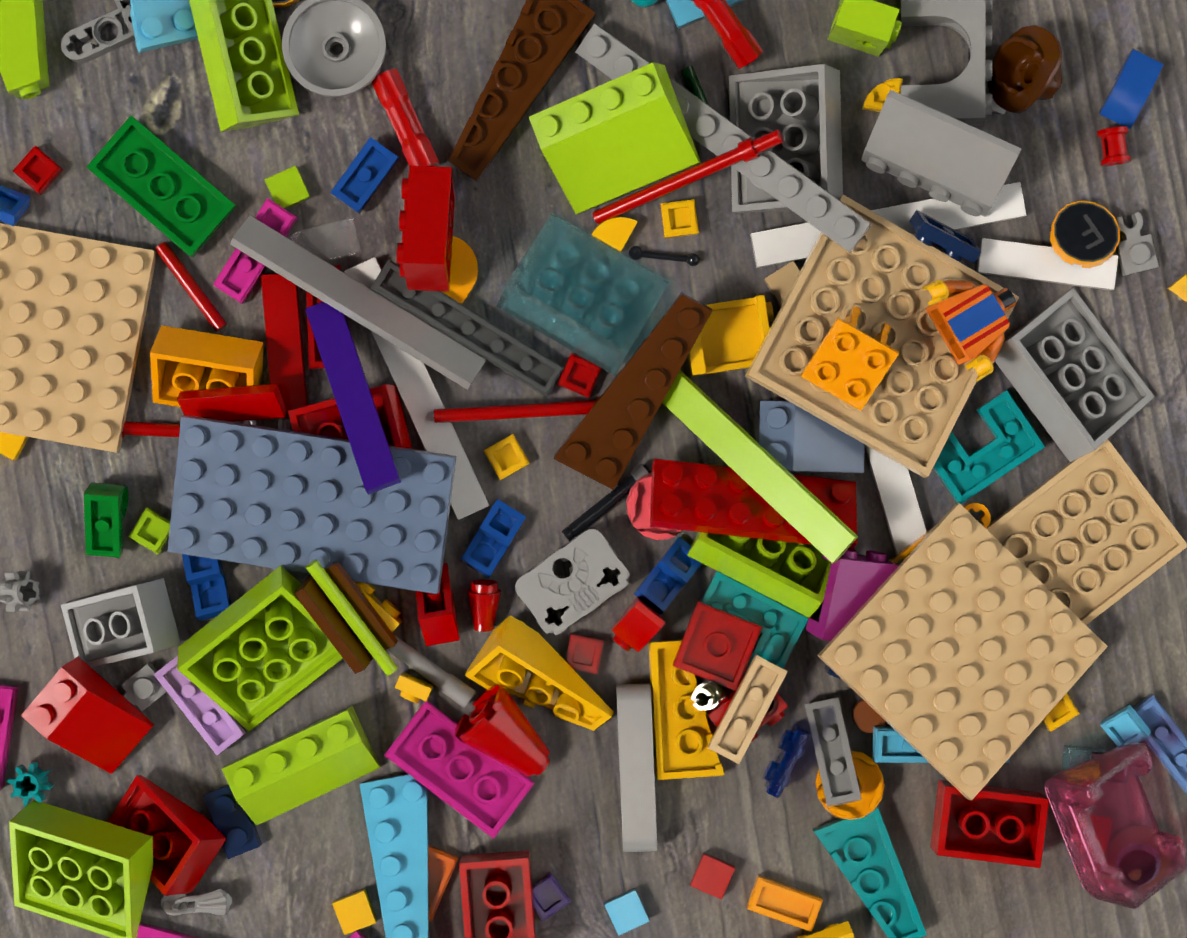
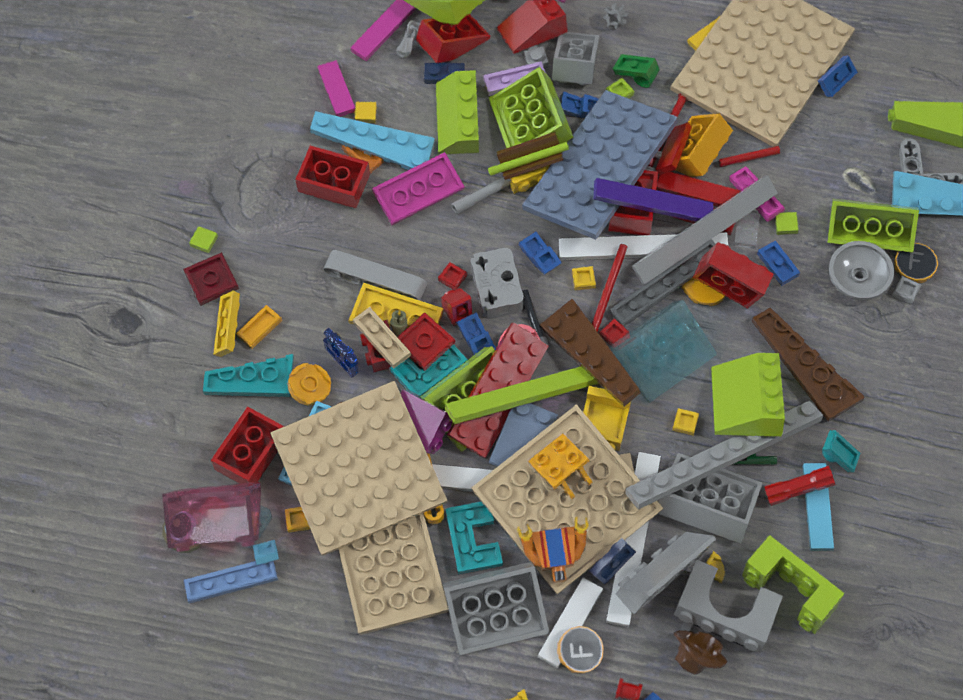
camera: 115 degrees right, 25 degrees down
(38, 170) = (845, 106): red tile -> none
(161, 186) = (812, 160): green plate -> none
(404, 120) = (810, 294): red axle -> none
(413, 688) = (475, 181): yellow plate -> none
(438, 613) = (509, 209): red slope -> none
(484, 603) = (506, 234): red cone -> none
(503, 733) = (426, 215): red cone -> none
(536, 672) = (464, 239): yellow wedge -> none
(548, 897) = (325, 209): tile -> none
(615, 232) = (691, 383): yellow tile -> none
(626, 911) = (296, 243): medium azure tile -> none
(636, 253) = (674, 392): black hinge -> none
(712, 876) = (294, 294): red tile -> none
(746, 150) = (710, 453): red bar -> none
(833, 752) = (332, 379): light grey plate -> none
(1135, 252) = (555, 680): light grey plate -> none

